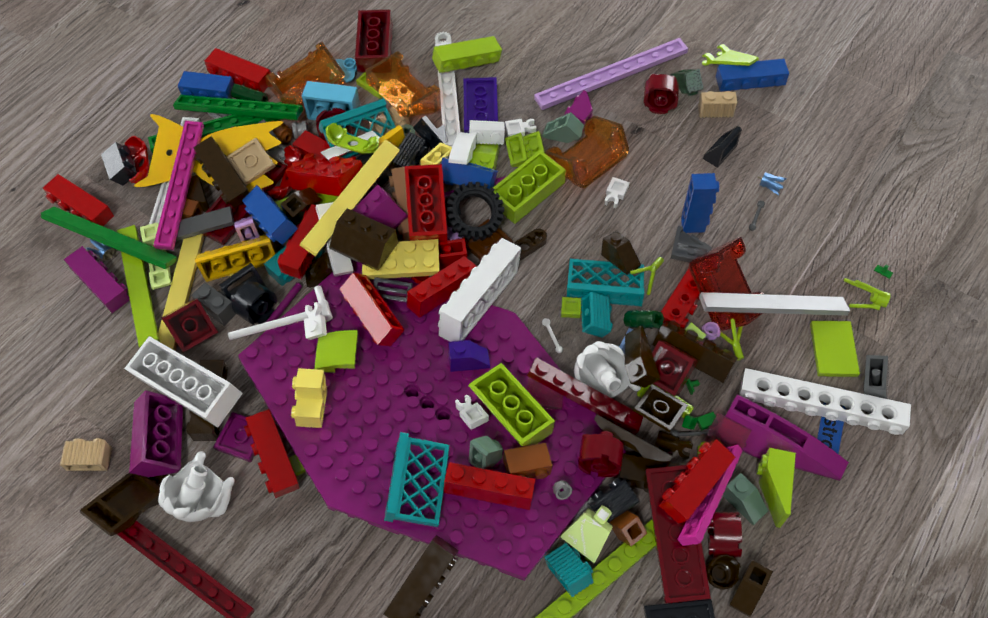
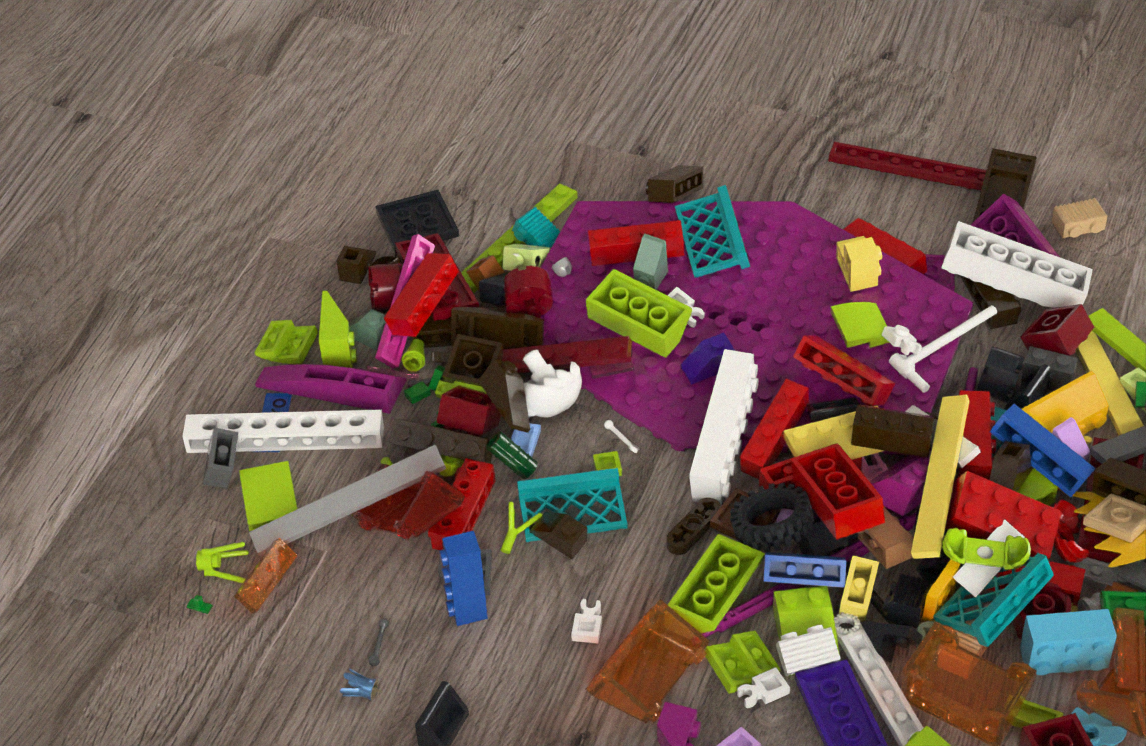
camera: 165 degrees right, 15 degrees down
(195, 492) = (940, 200): white piece -> none
(463, 148) = (822, 579): white slope -> none
(528, 461) = (594, 273): dark orange brick -> none
(564, 129) = (696, 693): sand green slope -> none
(596, 314) = (571, 452): teal brick -> none
(820, 509) = (286, 342): none -> lime slope
(836, 274) = (265, 575): none -> clear orange plate

